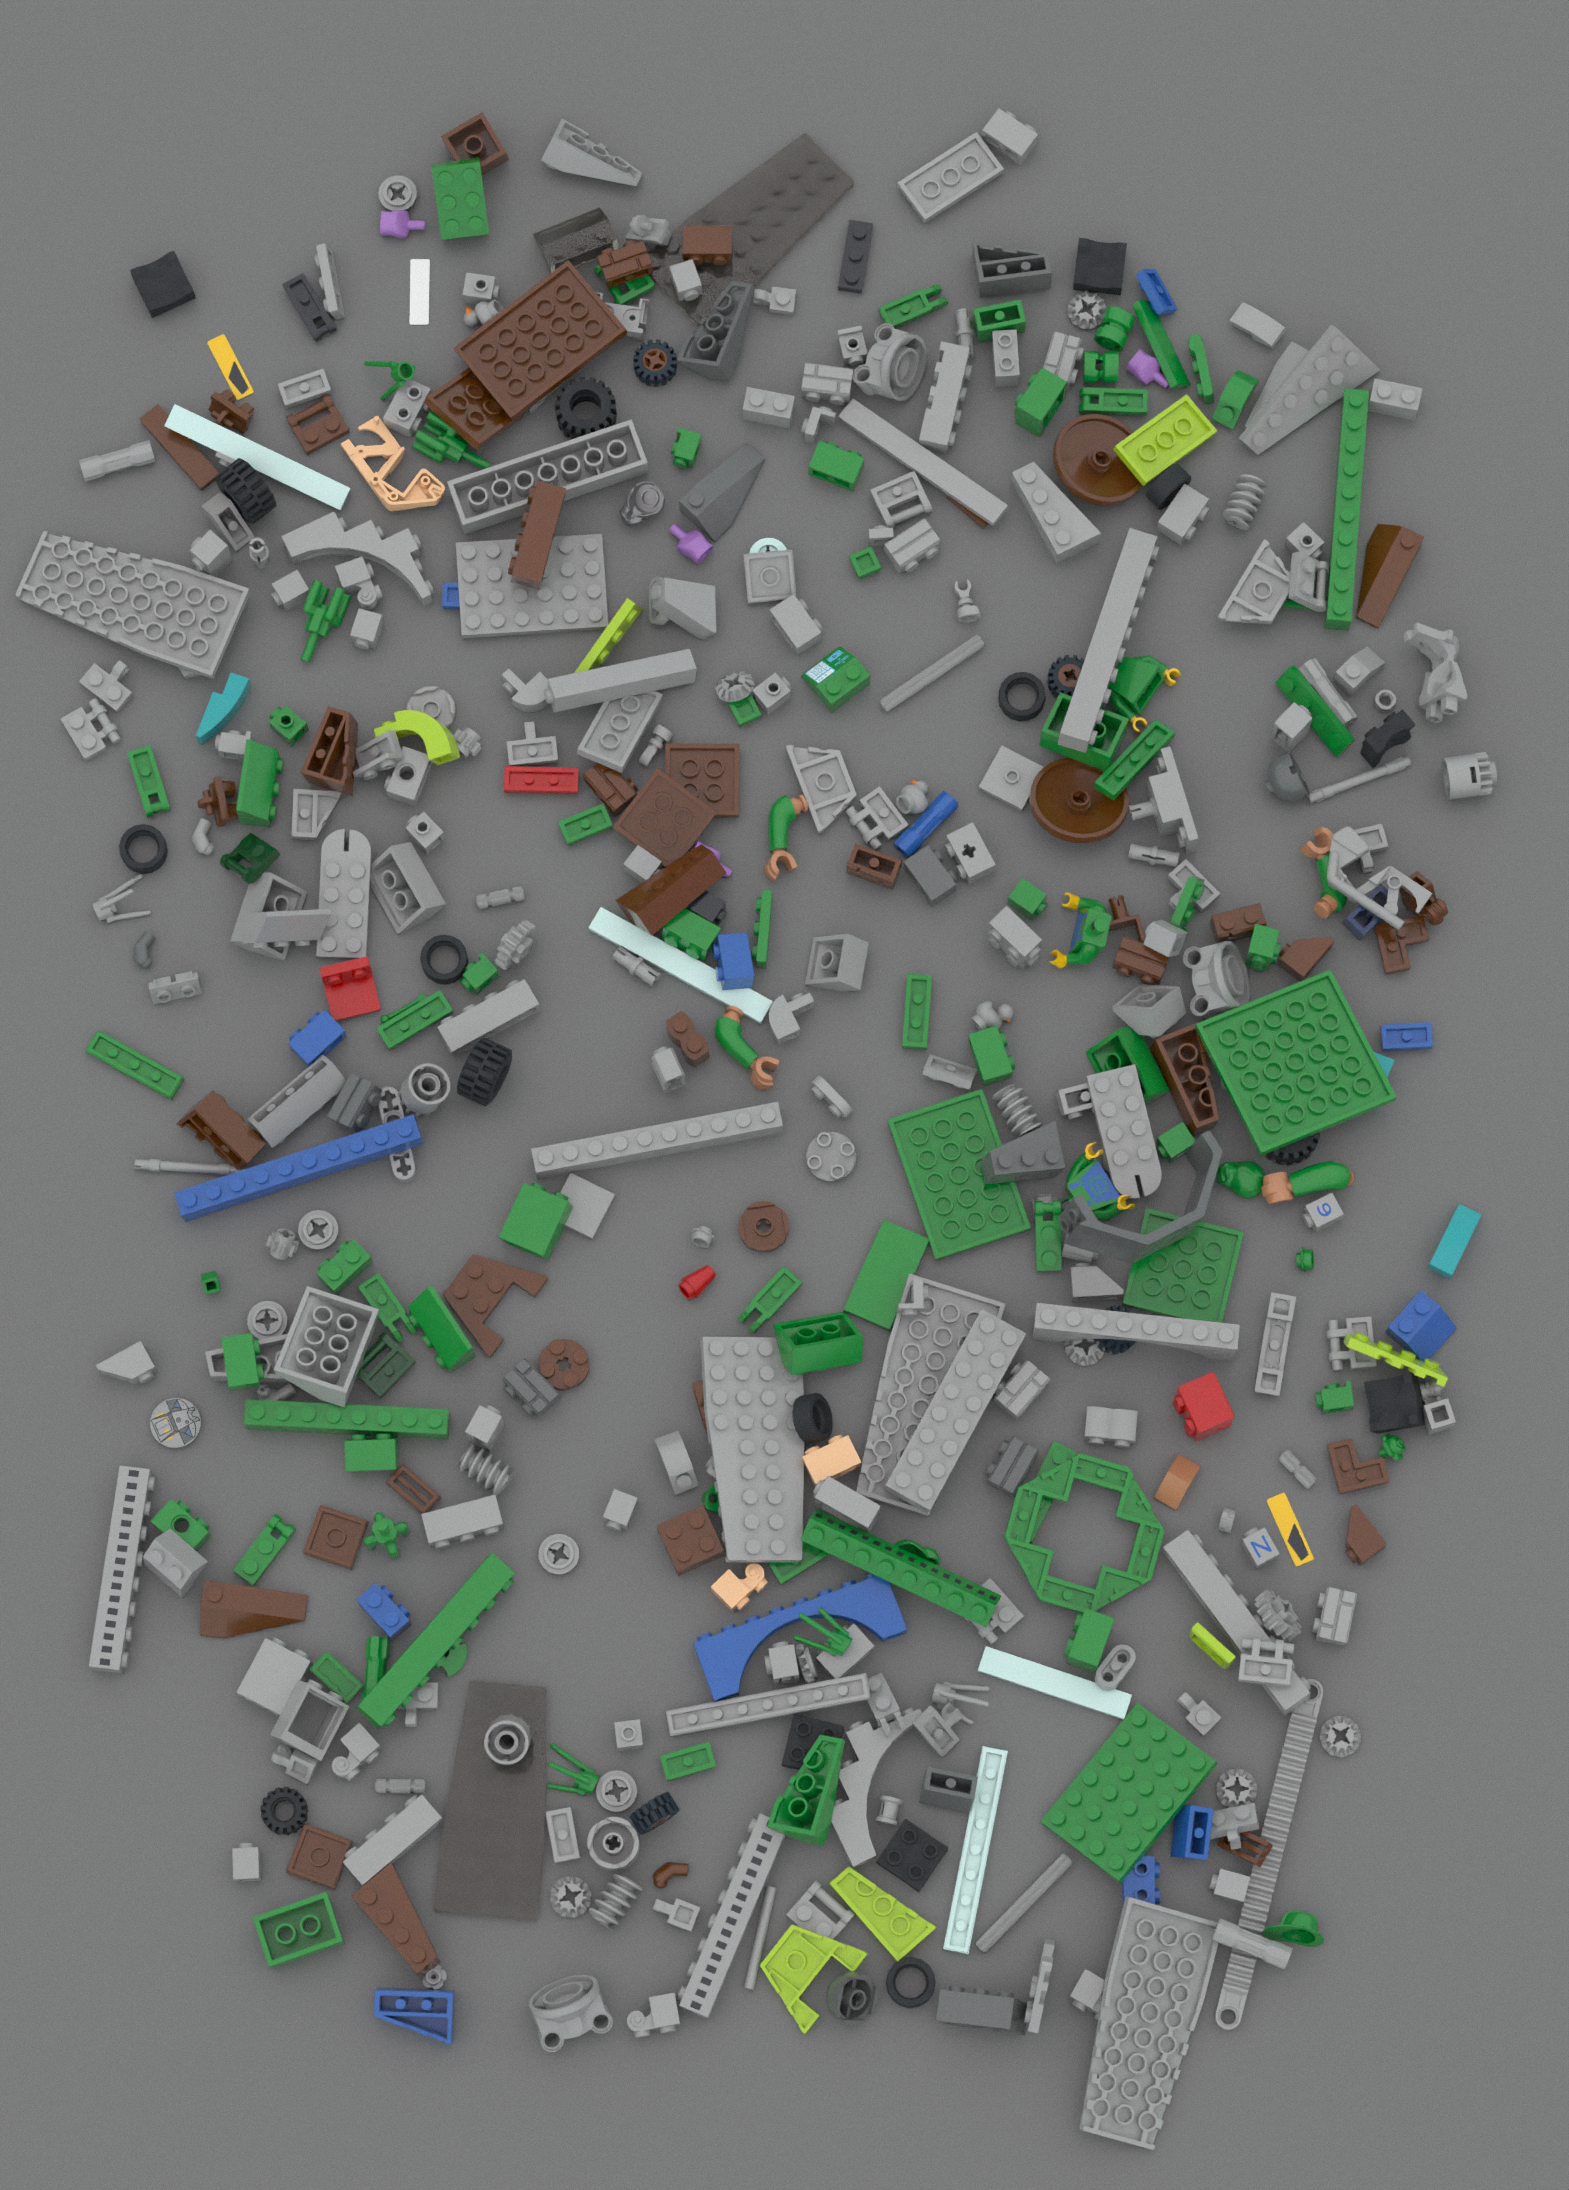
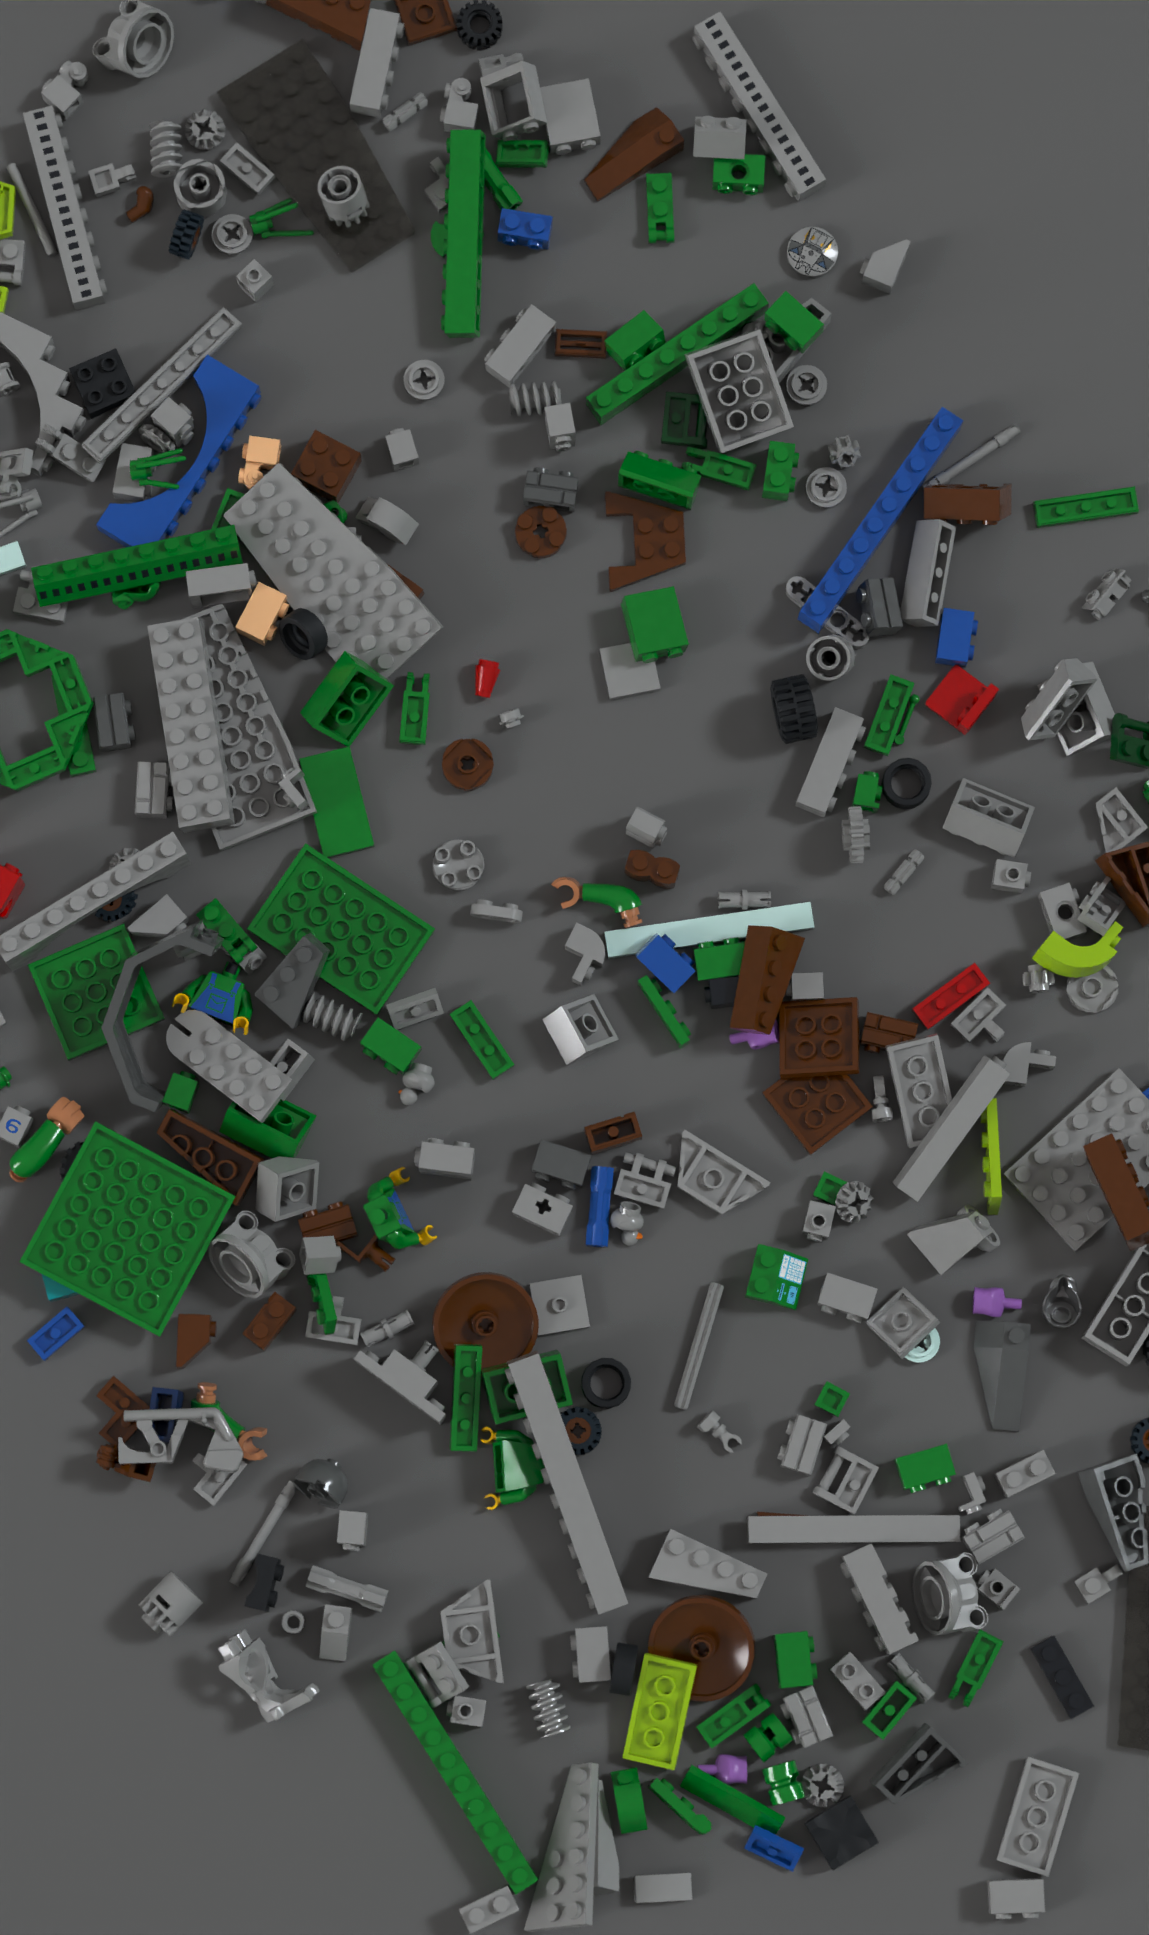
camera: 140 degrees right, 5 degrees up
(208, 1277) = (876, 378): green piece -> none
(335, 1537) = (612, 260): reddish brown tile -> none
(346, 892) = (1031, 773): light grey plate -> none
(386, 1535) = (570, 285): green plant -> none
(585, 824) = (883, 986): green plate -> none
(657, 1140) = (609, 766): light grey brick -> none
(686, 448) = (1065, 1381): green brick -> none
(688, 1761) = (193, 297): green plate -> none
(779, 818) = (725, 1115): piece -> none
(809, 1800) = (69, 329): green wedge -> none
(1027, 899) = (463, 1206): green brick -> none
(1110, 1426) = (57, 816): light grey brick -> none
(1241, 1178) = (105, 1106): green hair -> none
(1263, 948) = (230, 1311): green brick -> none
(1324, 721) = (345, 1564): green plate -> none
(1385, 567) = (382, 1746): reddish brown wedge -> none

